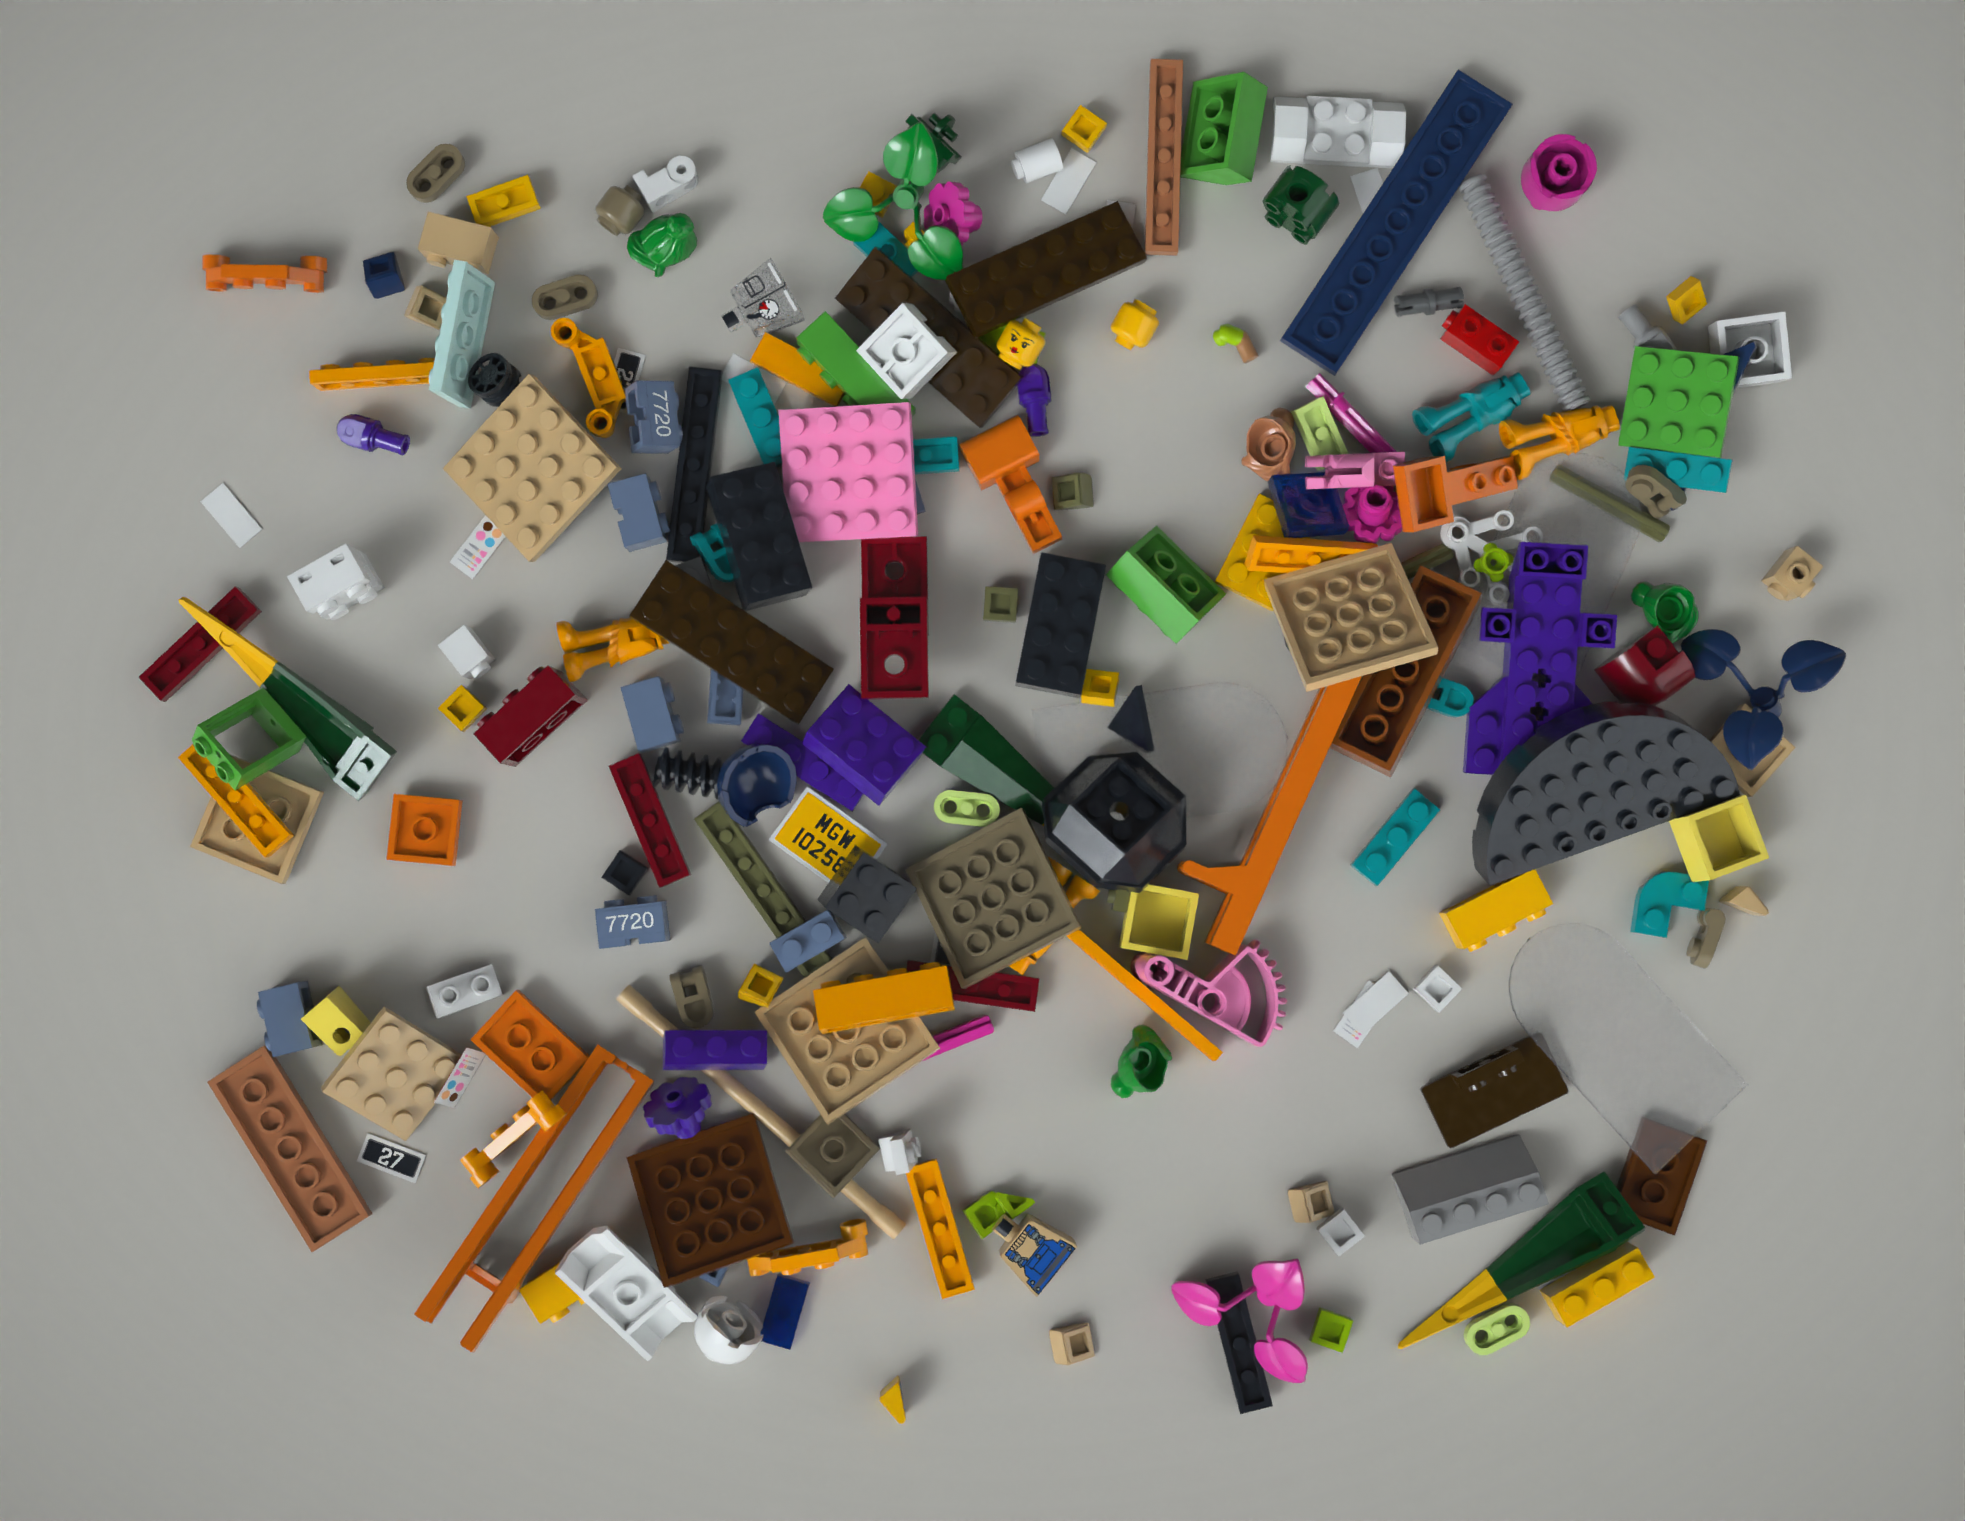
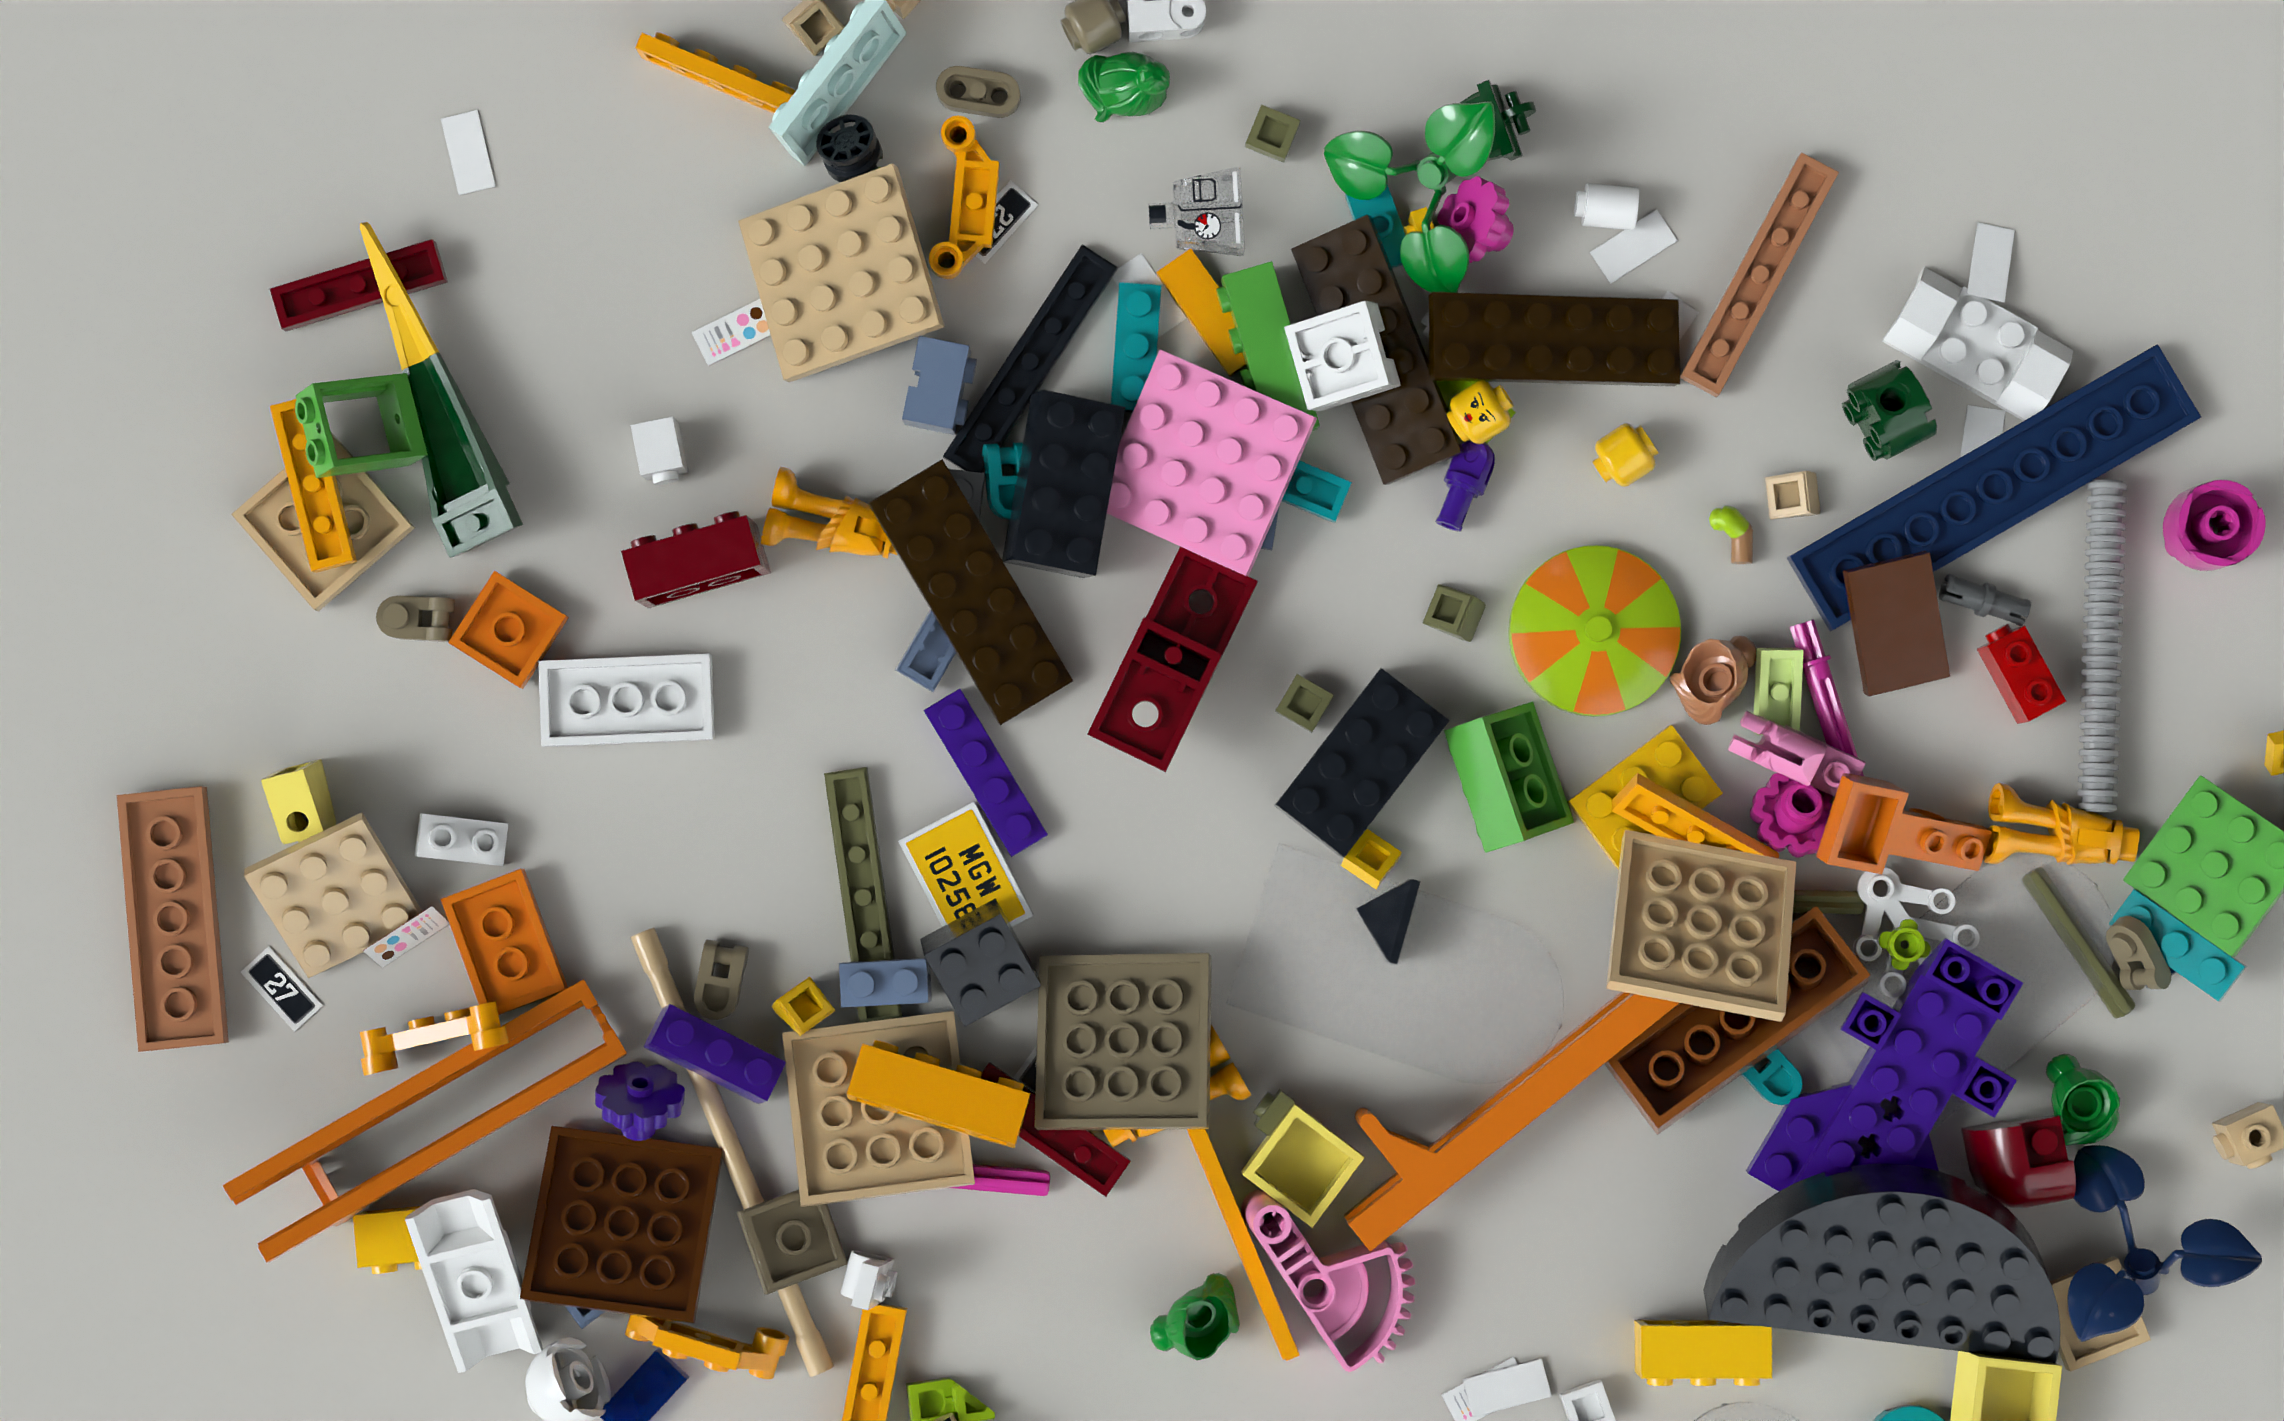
camera: 30 degrees right, 0 degrees up
(282, 1014) = (242, 762): sand blue brick -> none
(336, 582) = (550, 294): white piece -> none
(346, 859) = (402, 618): none -> dark tan plate
(369, 435) = (674, 140): dark purple arm -> none
(462, 708) = (622, 511): yellow plate -> none
(531, 837) = (626, 700): none -> white plate
(621, 923) = (706, 861): sand blue brick -> none
(625, 872) = (713, 795): black tile -> none
(649, 820) = (772, 749): dark red plate -> none
(652, 714) = (837, 628): sand blue brick -> none
(655, 417) = (1012, 285): sand blue brick -> none
(687, 773) = (846, 719): black piece -> none
(754, 781) = (917, 766): dark blue cylinder -> none
(782, 225) = (1272, 133): none -> olive plate
(863, 745) = (1063, 787): dark purple brick -> none
(879, 190) = (1405, 146): yellow plate -> none
(966, 808) = (1145, 921): yellowish green plate -> none
(978, 754) = (1192, 867): dark green plate -> none
(1002, 459) = (1392, 532): orange plate -> none
(1084, 129) = (1681, 195): yellow plate -> none
(1109, 850) = (1282, 1053): black piece -> none
(1174, 456) = (1594, 631): none -> dish
(1223, 129) = (1844, 277): bright green slope -> none
(1262, 296) = (1792, 495): none -> tan slope
(1304, 510) = (1713, 774): clear blue plate -> none
(1317, 70) = (1990, 262): none -> white sticker
(1377, 347) = (1896, 623): none -> reddish brown tile
(1395, 837) = (1627, 1206): teal plate -> none
(1487, 405) = (1991, 756): teal piece -> none
(1644, 332) = (2220, 763): light grey arm -> none

